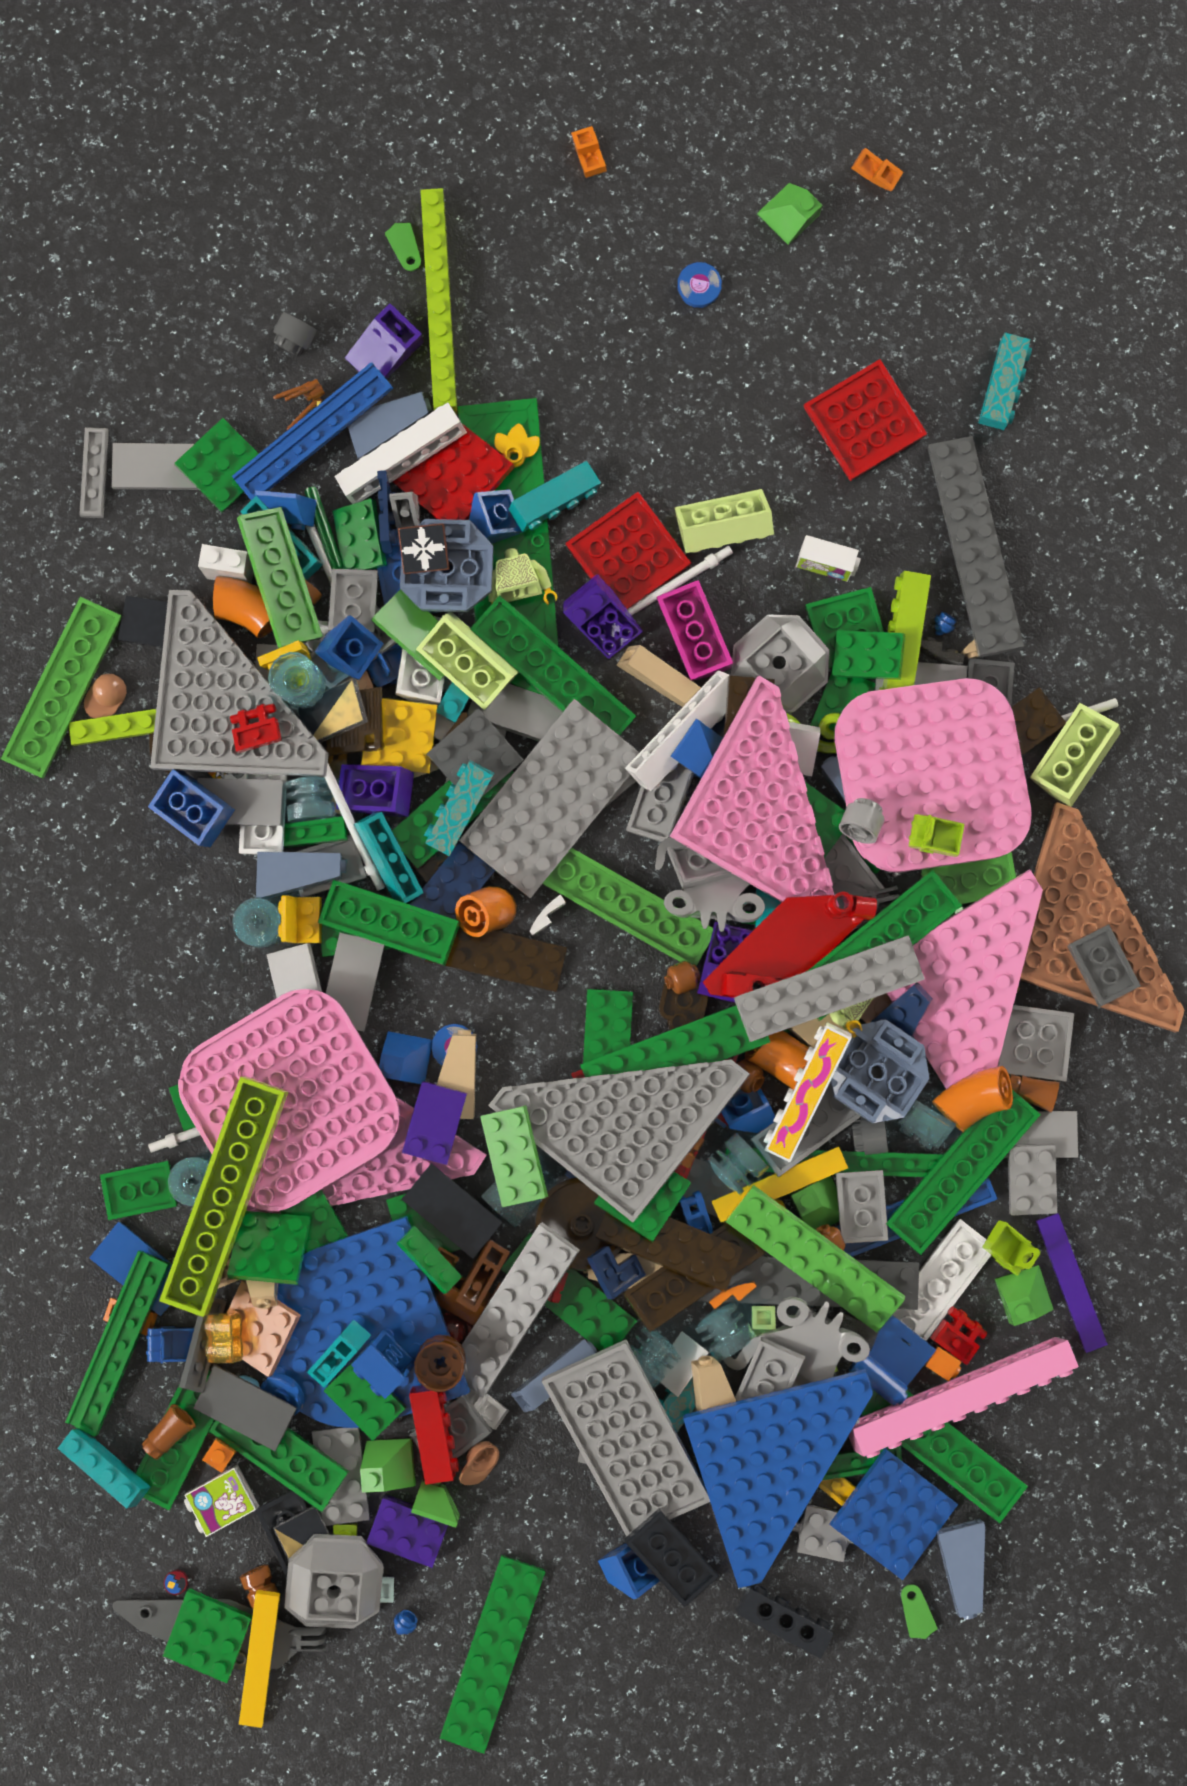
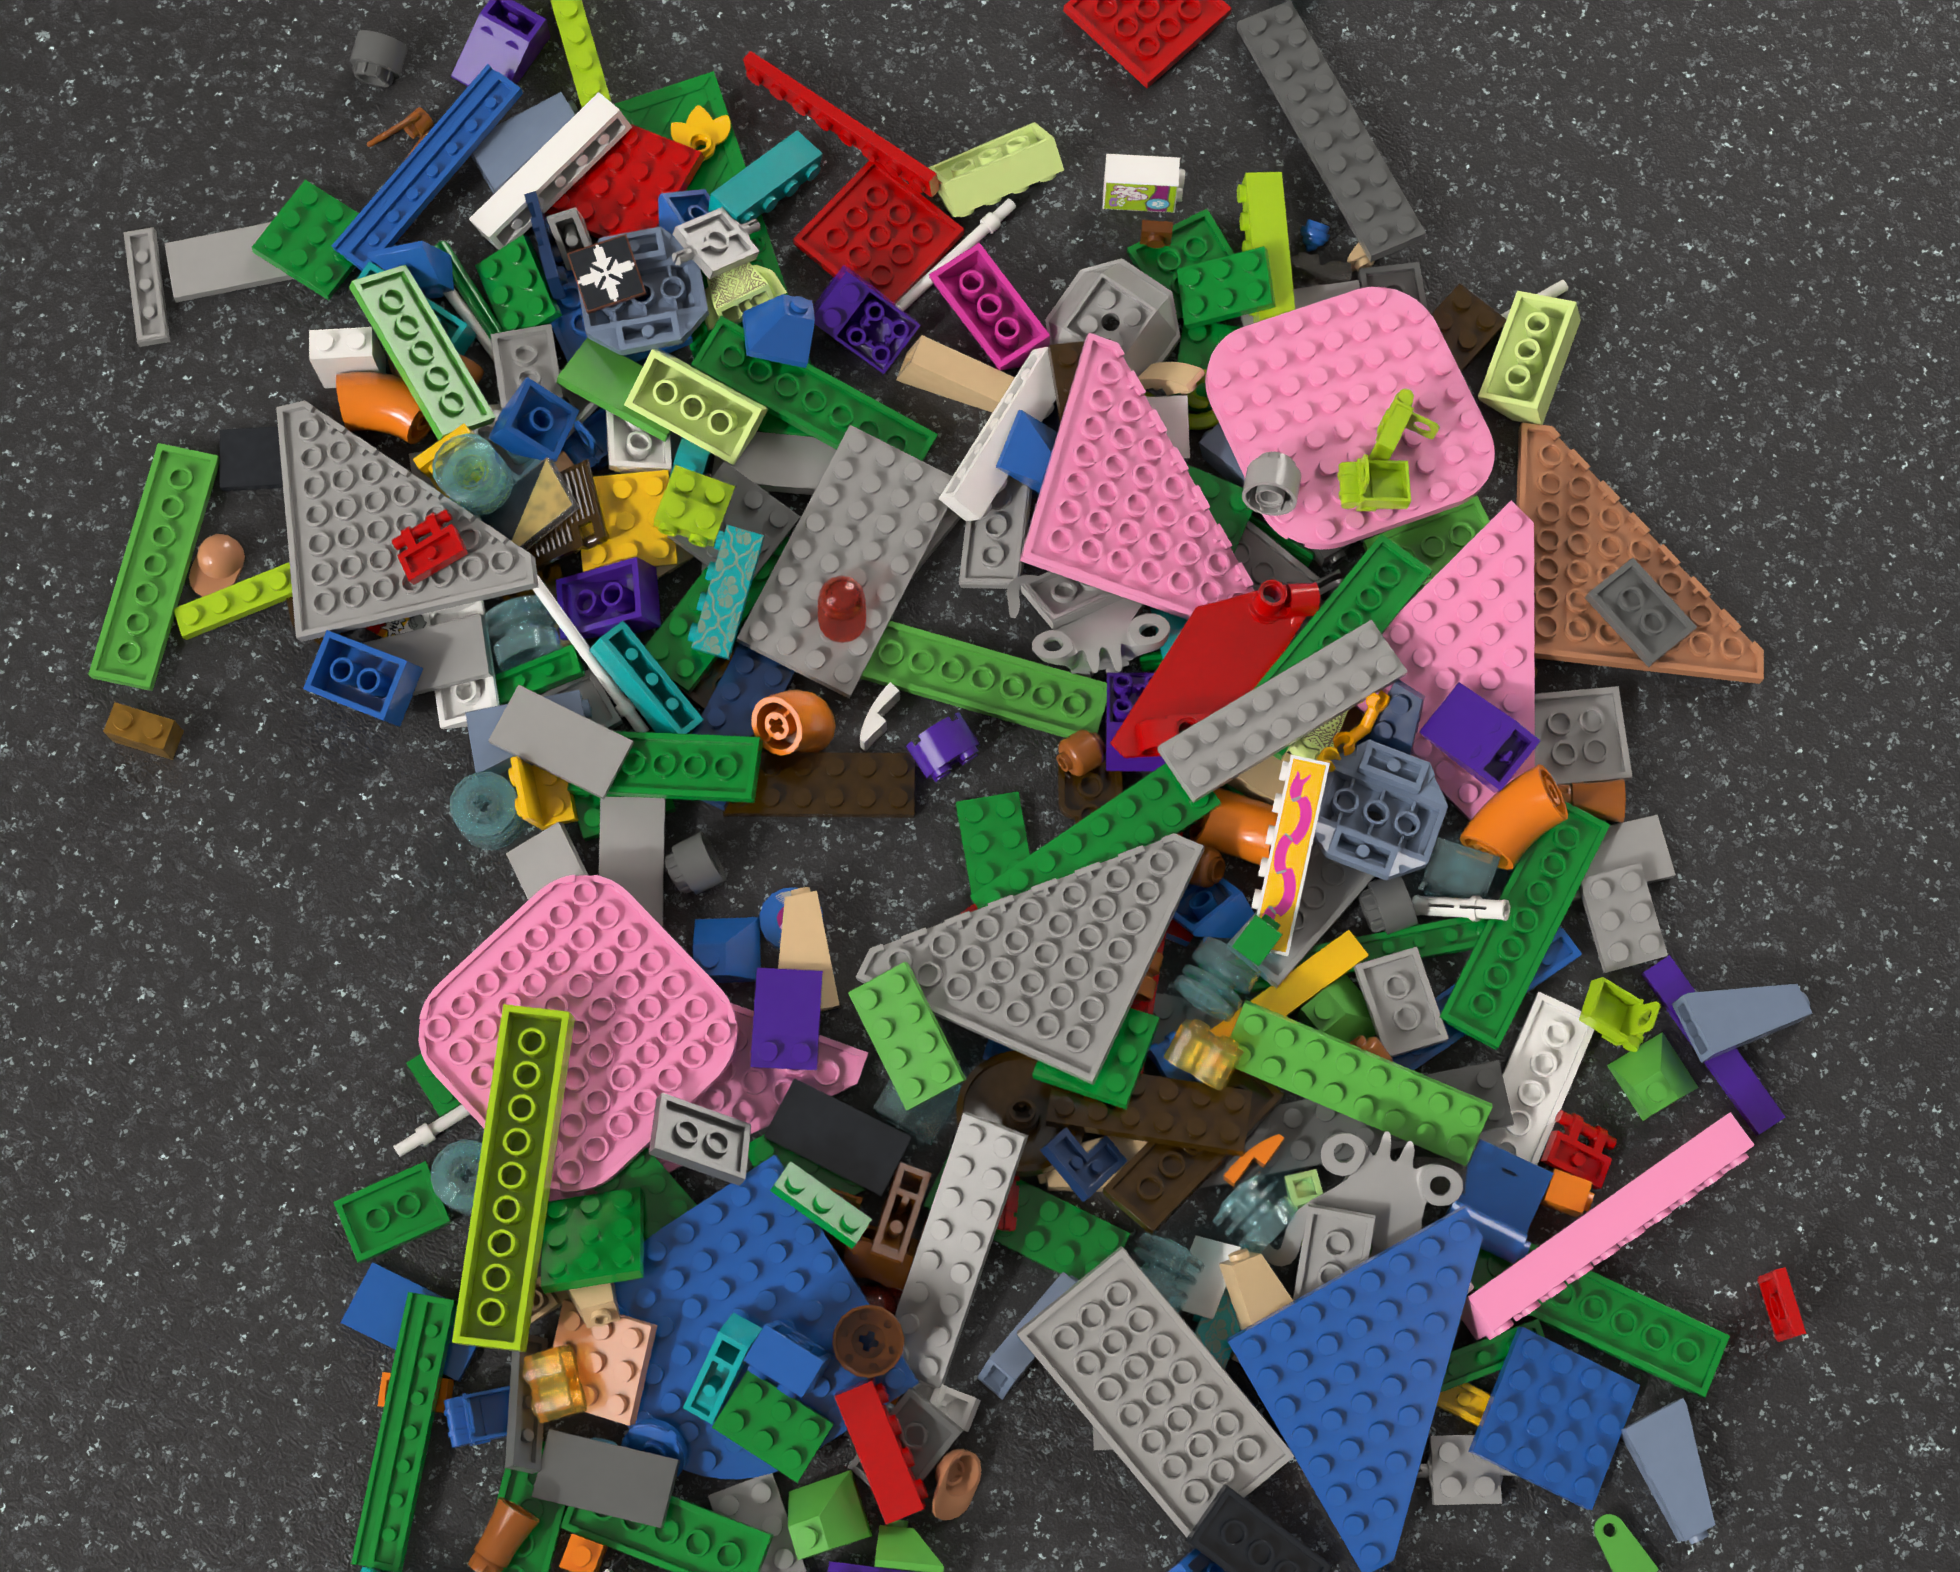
camera: 10 degrees left, 10 degrees down
(31, 809) = (143, 731): none -> pearl gold brick
(319, 889) = (561, 742): none -> light grey tile
(356, 1196) = (700, 1139): none -> plate
(395, 994) = (695, 865): none -> dark grey piece
(448, 740) = (693, 506): none -> lime plate
(507, 541) = (716, 242): none -> light grey plate
(537, 835) = (841, 609): none -> clear red cap
(539, 616) = (780, 330): none -> blue slope
(588, 950) = (944, 746): none -> dark purple brick
(624, 469) = (848, 129): none -> red plate
(715, 1216) = (1204, 1054): none -> clear yellow brick
(771, 1148) = (1258, 938): none -> green brick
(813, 714) = (1172, 377): none -> tan slope
(828, 601) = (1156, 233): none -> reddish brown plate
(896, 996) = (1376, 704): none -> light orange arm
(921, 1149) = (1495, 908): none -> white pin
(961, 794) = (1395, 420): none -> lime piece
(964, 1035) = (1479, 737): none -> dark purple slope
(1068, 1475) = (1781, 1305): none -> red tile
(1088, 1270) = (1735, 1017): none -> sand blue slope

